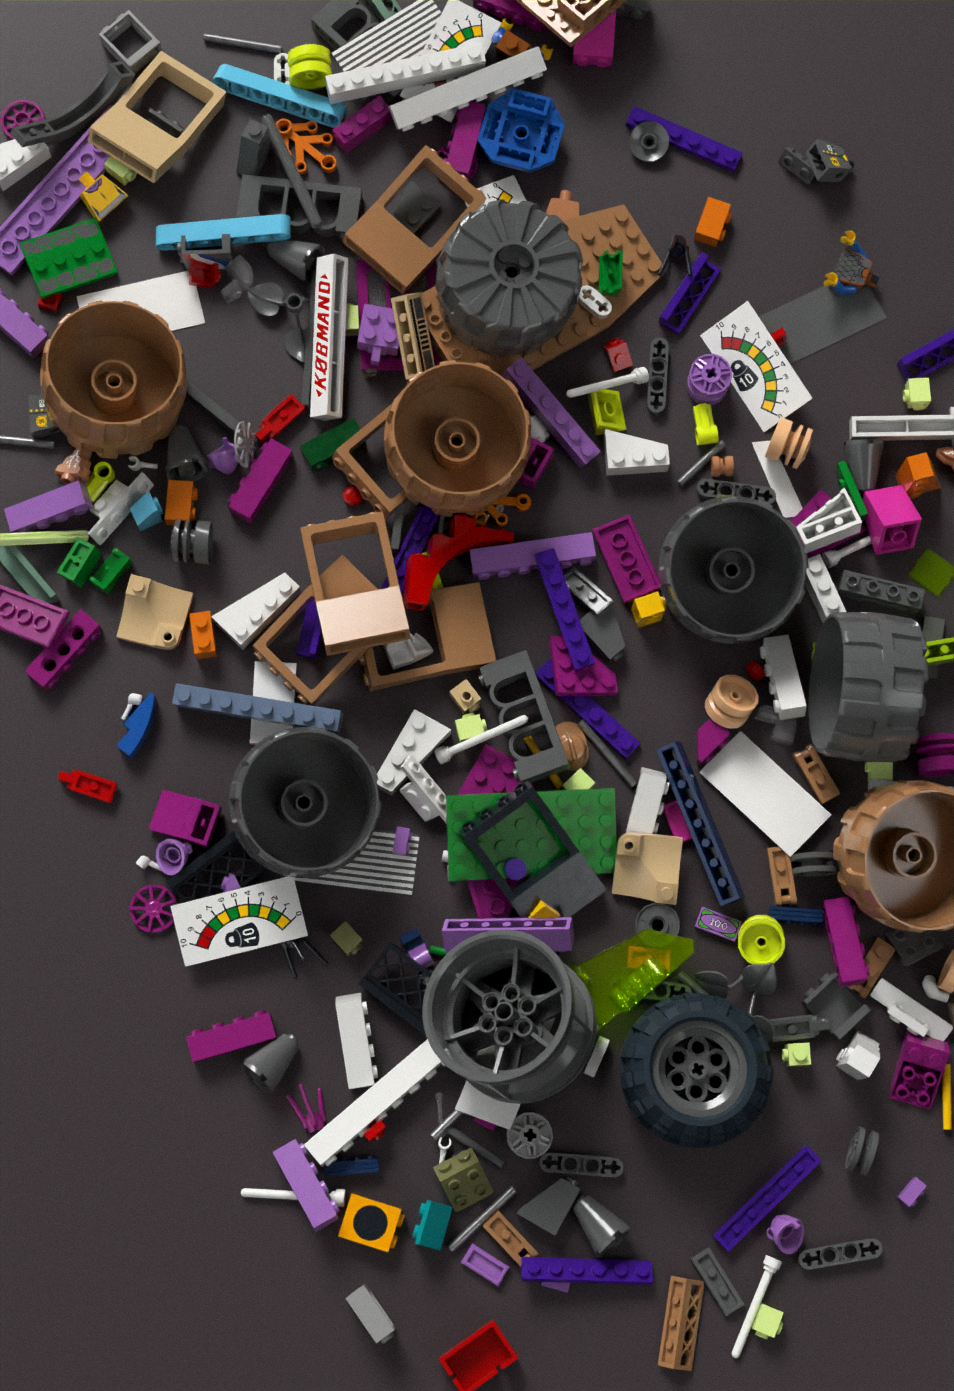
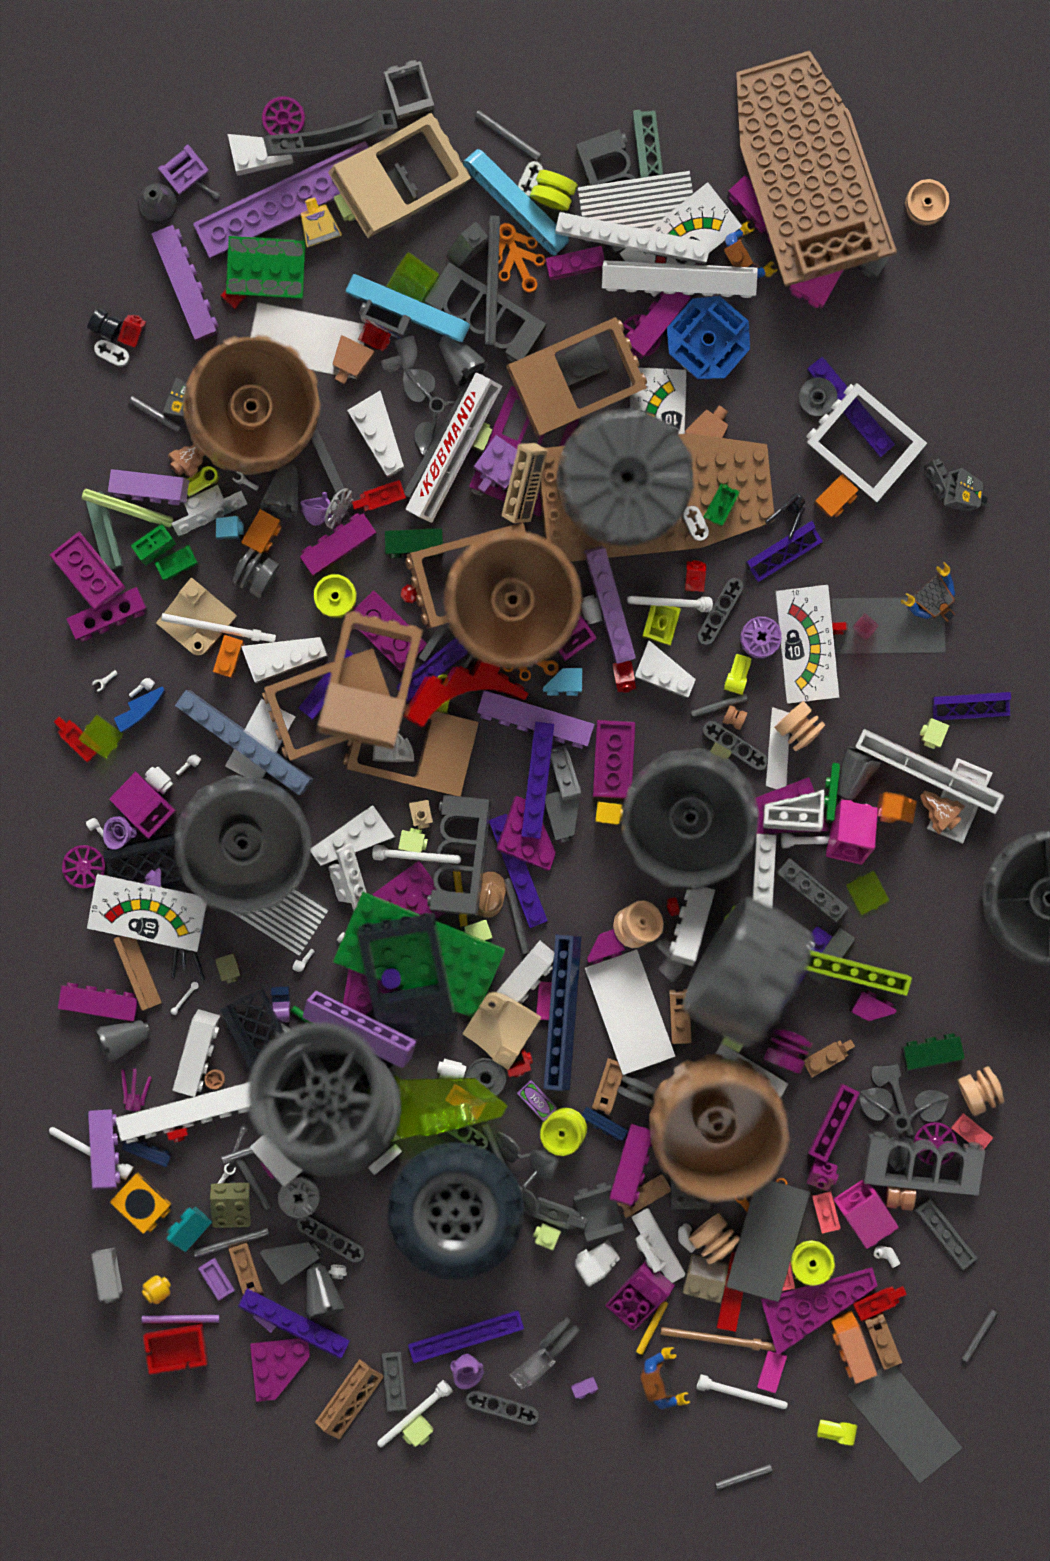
camera: 30 degrees right, 10 degrees up
(91, 716) = (103, 681): none -> white hand
(112, 771) = (101, 736): none -> clear neon green piece
(189, 786) = (158, 780): none -> white brick
(191, 304) = (350, 359): none -> nougat torso
(215, 201) = (413, 278): none -> clear neon green slope
(215, 752) = (193, 760): none -> white hand
(219, 603) = (255, 635): none -> white bar
(248, 359) = (375, 427): none -> white wedge
(257, 986) = (138, 972): none -> medium nougat fence
(276, 517) = (335, 607): none -> neon yellow wheel
(312, 1009) = (194, 985): none -> white hinge
(359, 550) = (393, 649): none -> magenta piece
(386, 1057) = (216, 1081): none -> nougat wheel
(401, 840) = (310, 908): medium lavender piece -> none
(417, 904) = (298, 965): none -> white hand
(428, 1305) = (156, 1289): none -> yellow head
(461, 1328) = (181, 1319): none -> medium lavender bar
(544, 506) = (566, 680): none -> medium azure slope
(544, 911) = (397, 1025): yellow slope -> none
(589, 1324) = (276, 1365): none -> magenta plate
(598, 477) = (624, 676): none -> red bracket
(604, 1195) = (338, 1271): none -> white plate
(617, 933) = (451, 1069): none -> white brick
(685, 898) = (519, 1067): none -> red bracket
(702, 192) = (899, 466): none -> white window
(802, 324) = (865, 627): none -> clear pink brick
(851, 1198) = (532, 1369): none -> clear brick

